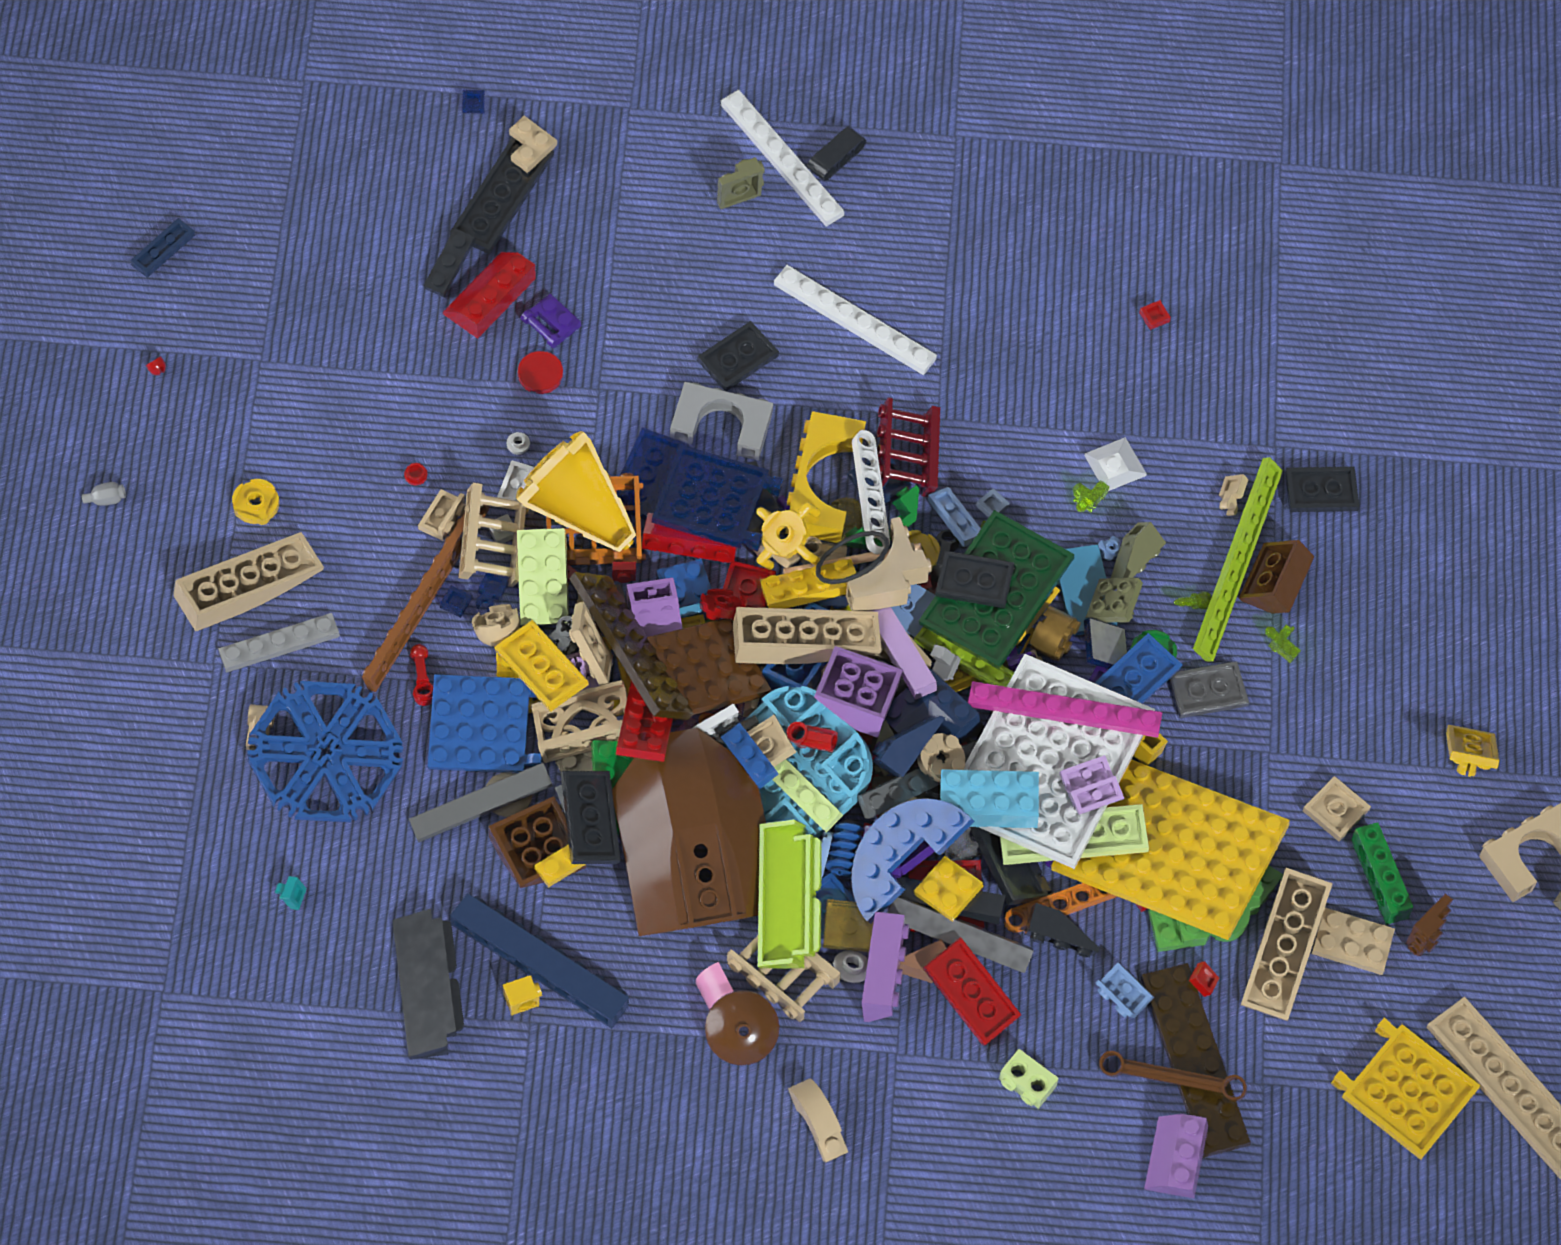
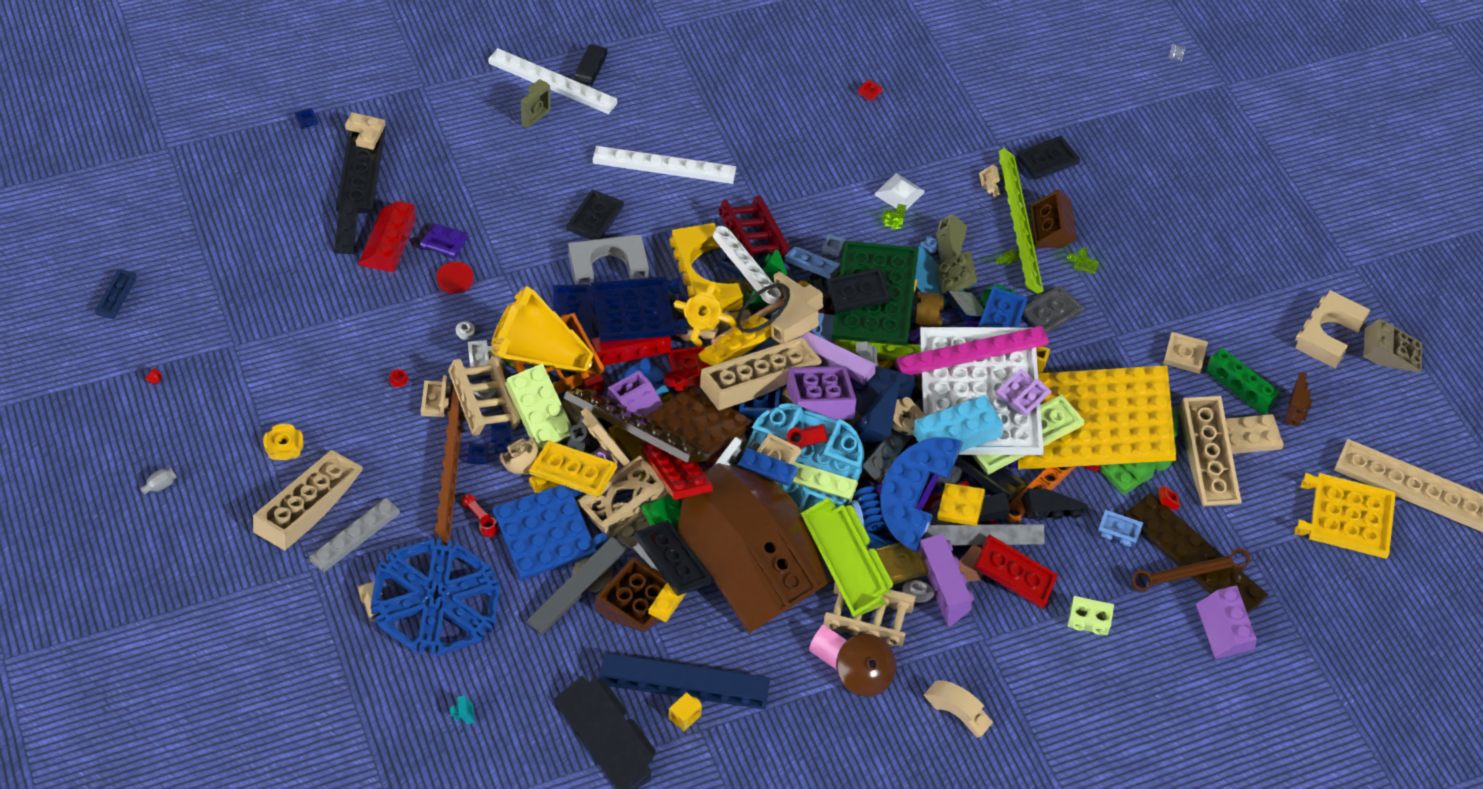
camera: 25 degrees left, 10 degrees down
(1472, 749) = (1251, 279): yellow plate -> none

